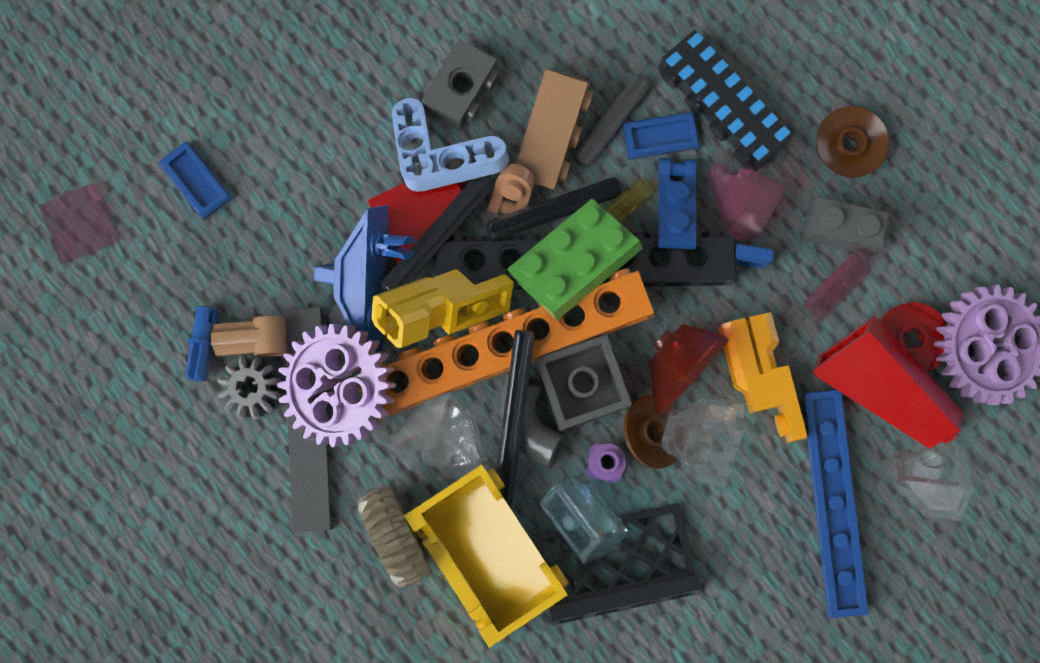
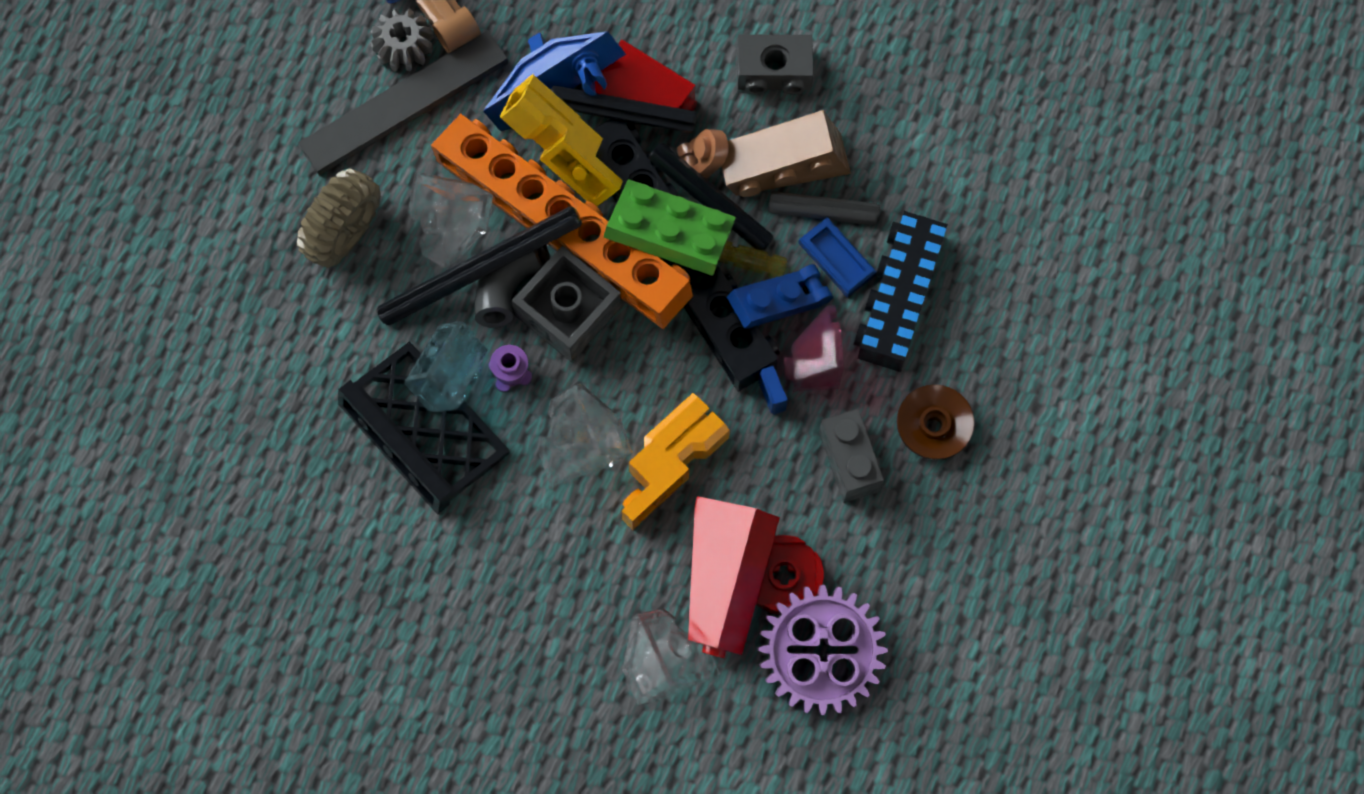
camera: 65 degrees right, 10 degrees down
(350, 415) = (443, 99): lavender gear -> none
(435, 160) = (715, 103): light blue beam -> none
(487, 555) = (366, 298): yellow windscreen -> none
(645, 431) = (554, 368): reddish brown dish -> none
(680, 362) = (635, 377): clear red slope -> none
(834, 504) = (588, 587): blue plate -> none
(837, 286) = (792, 481): clear pink slope -> none

